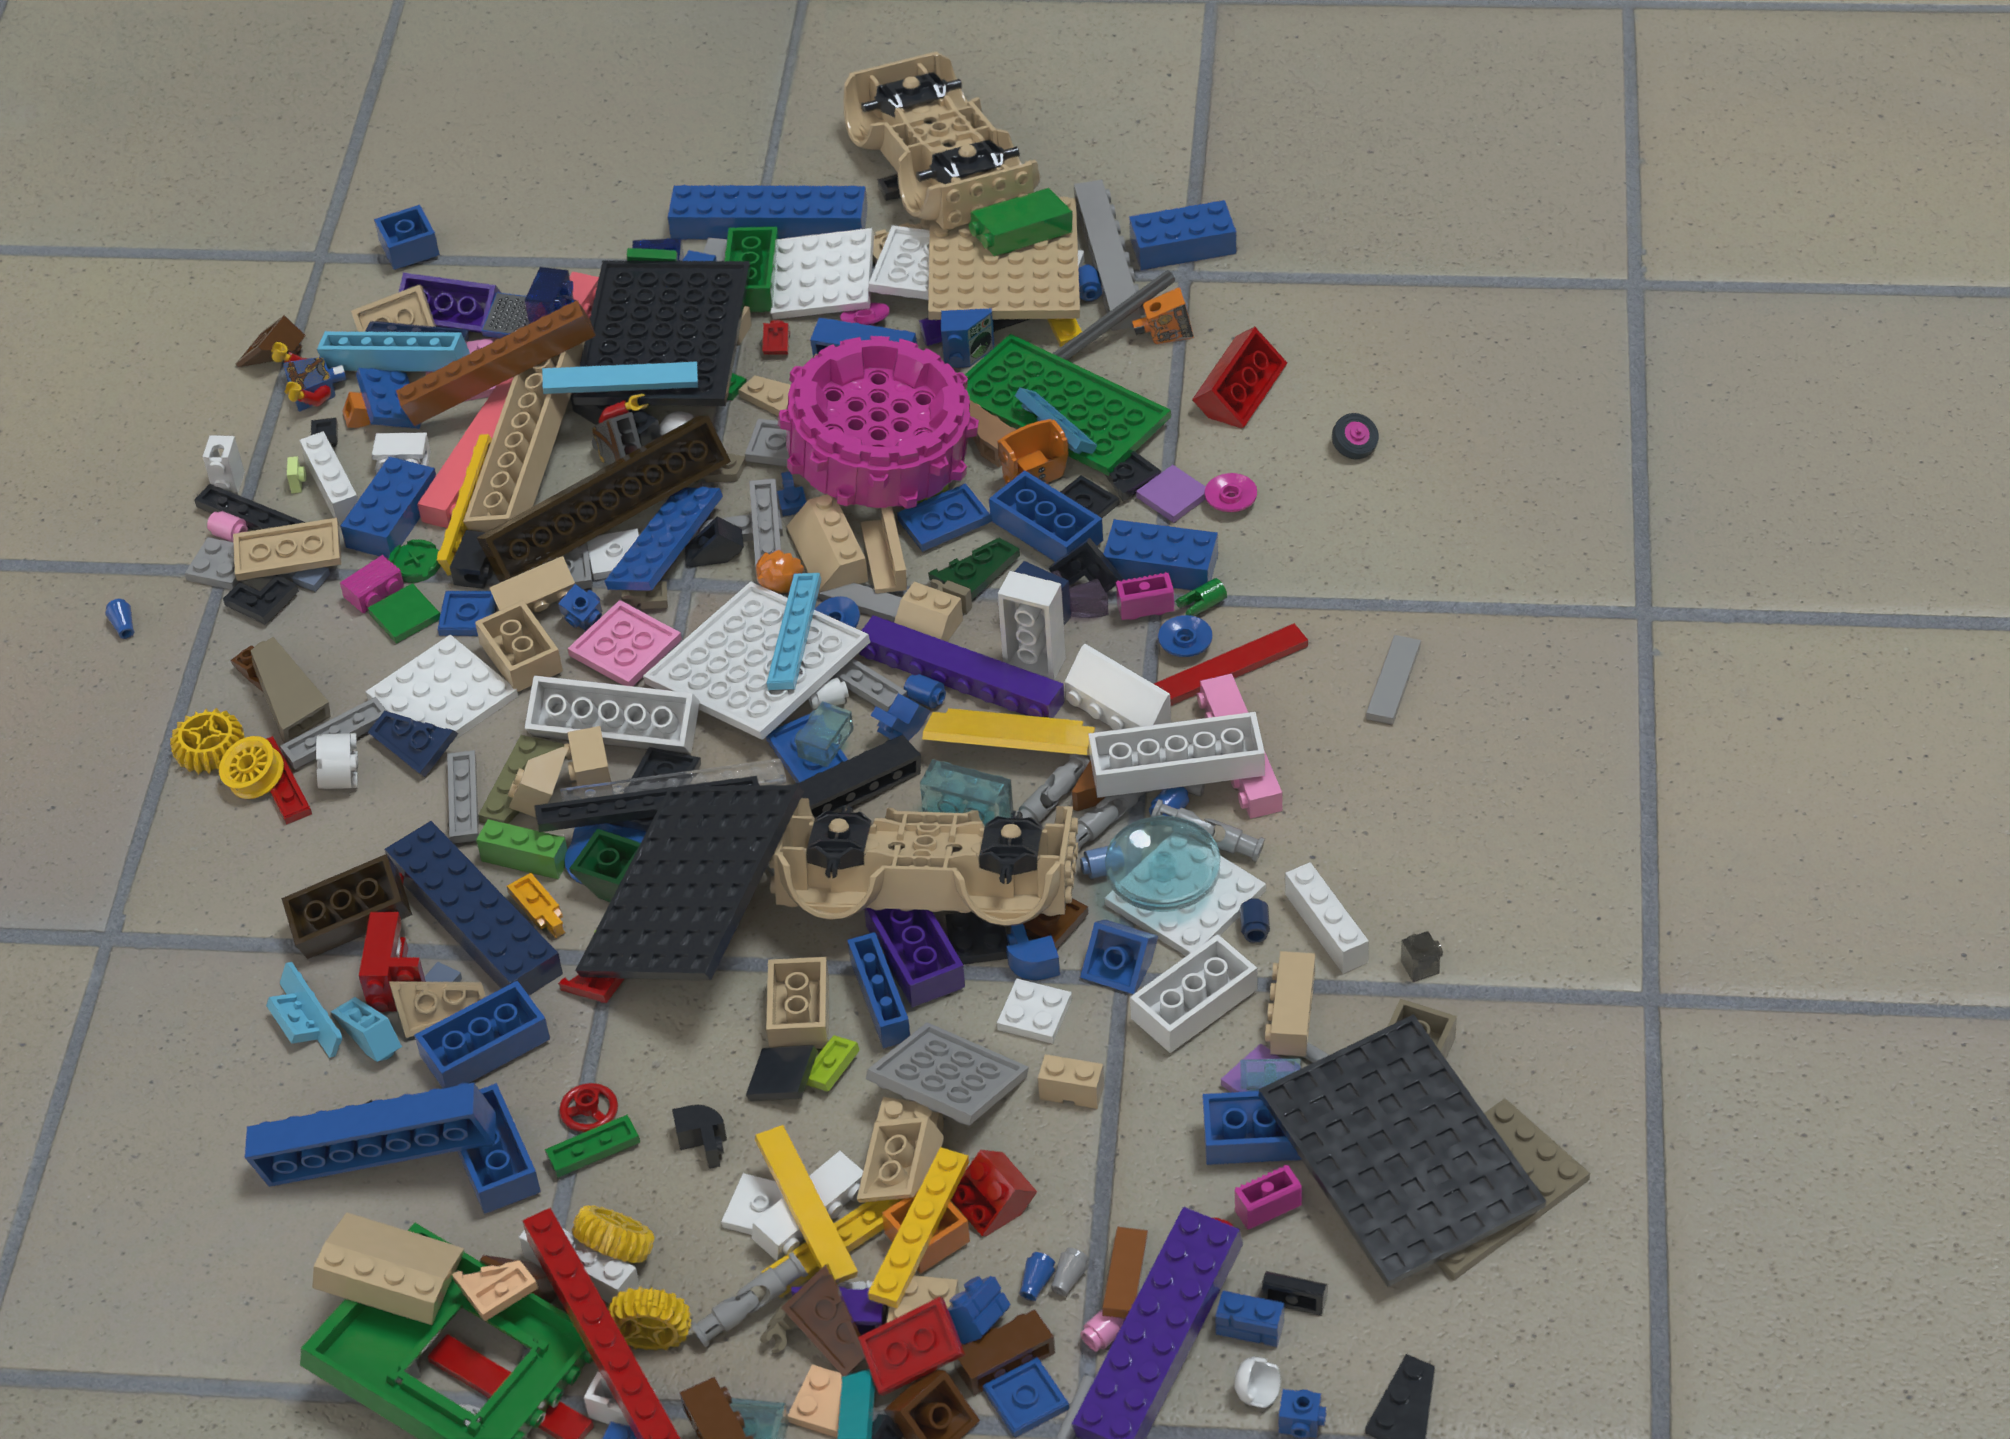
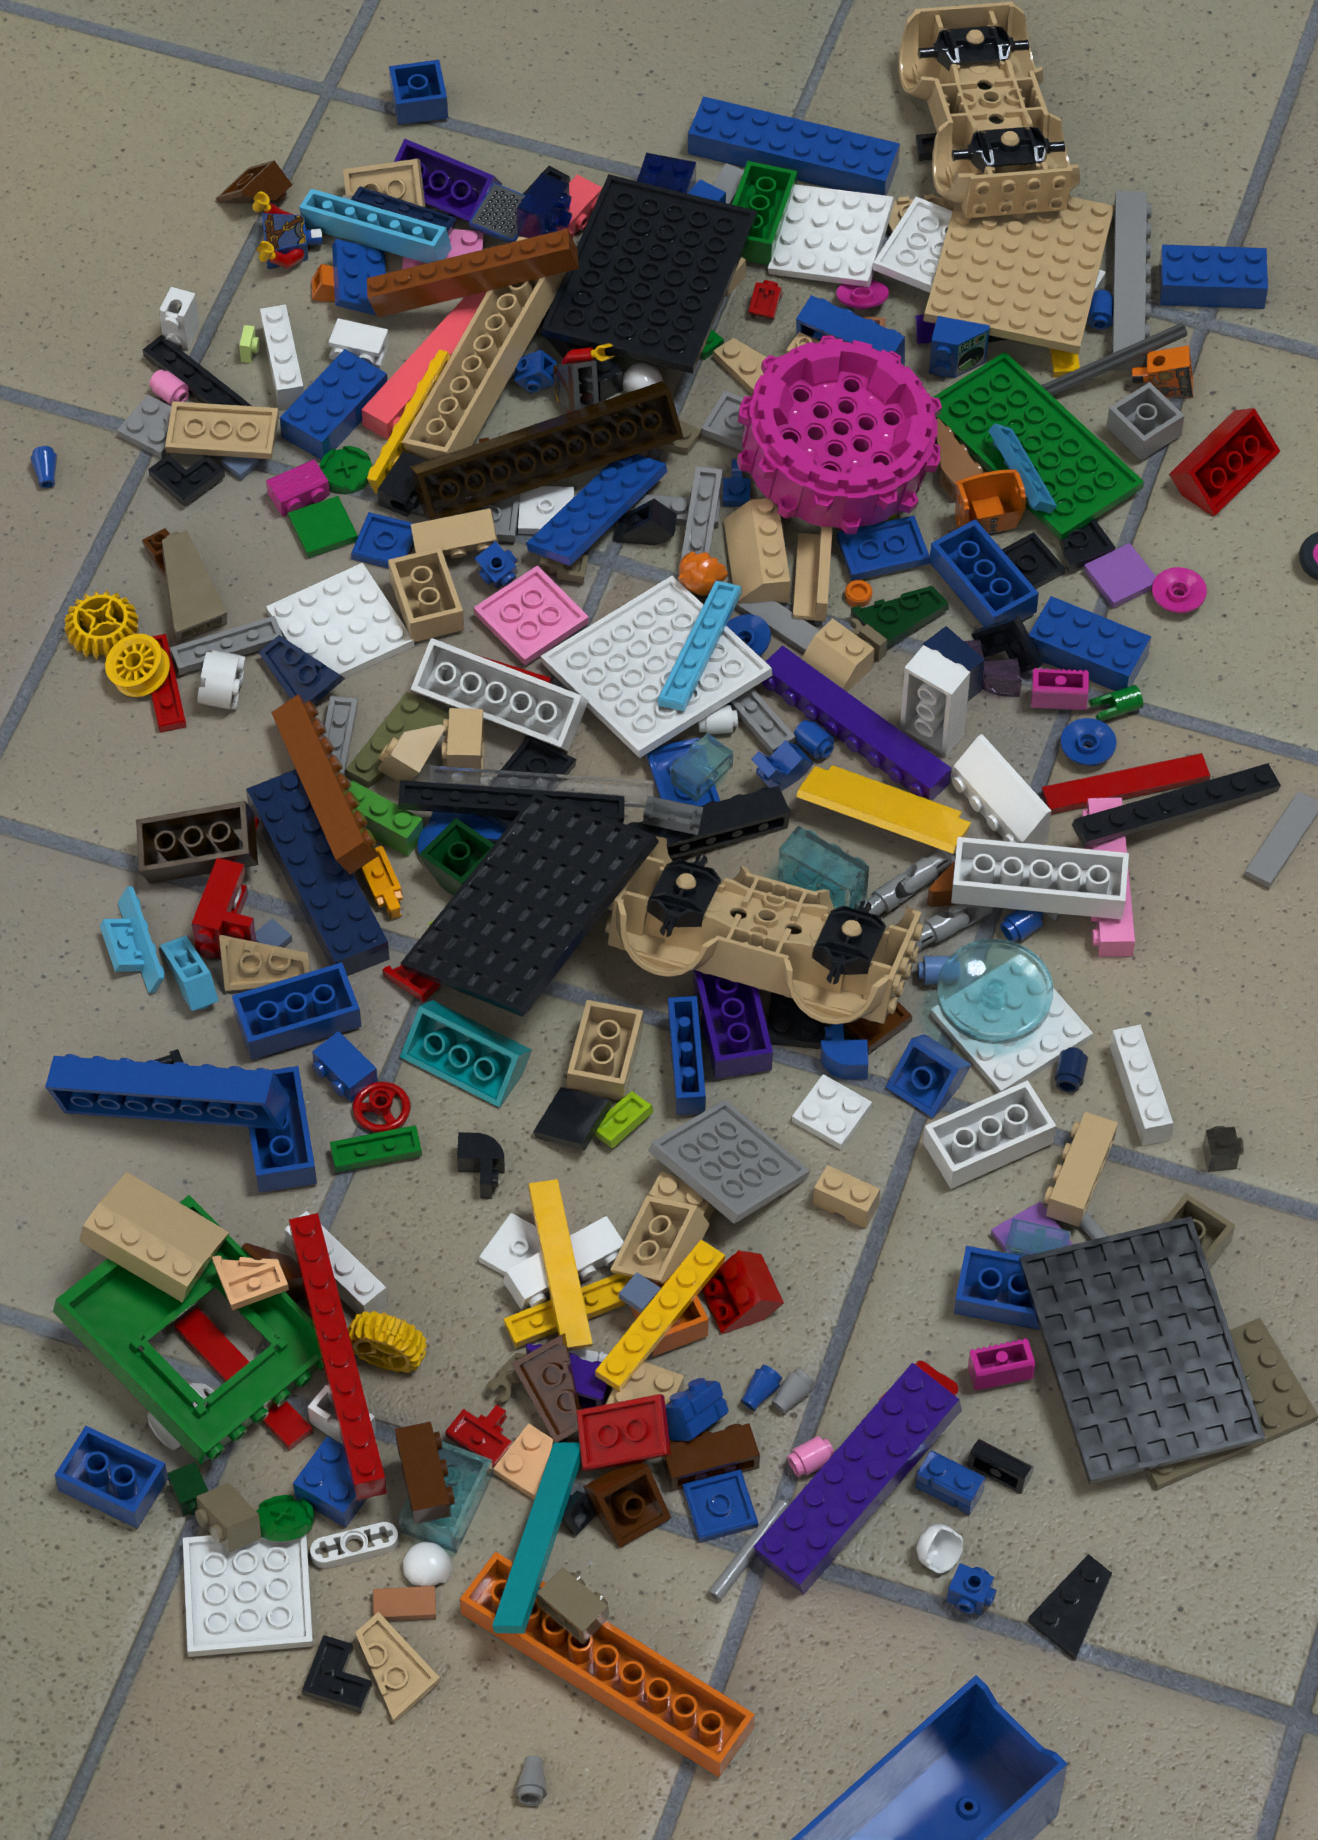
camera: 10 degrees right, 10 degrees up
(330, 428) = (291, 298): black tile -> none
(462, 827) = (325, 784): none -> dark orange brick
(541, 1077) = (343, 1066): none -> blue brick
(575, 439) = (535, 371): none -> blue brick
(613, 1234) = (372, 1248): yellow gear -> none
(620, 377) = (592, 320): medium azure tile -> none
(637, 254) = (659, 180): green tile -> none
(659, 1038) = (465, 1052): none -> teal slope
(734, 1309) = (470, 1350): light grey piece -> none
(767, 1384) = (481, 1434): none -> red hinge
(810, 776) = (672, 815): none -> dark grey hinge
(891, 1210) = (638, 1292): none -> sand blue tile
(931, 559) = (858, 593): none -> orange tile
(1021, 222) = (1047, 228): green brick -> none
(1124, 1271) = (844, 1406): dark orange tile -> none
(1157, 361) = (1145, 421): none -> light grey brick
(1234, 838) = (1075, 977): light grey piece -> none
(1284, 669) = (1175, 805): none -> black plate

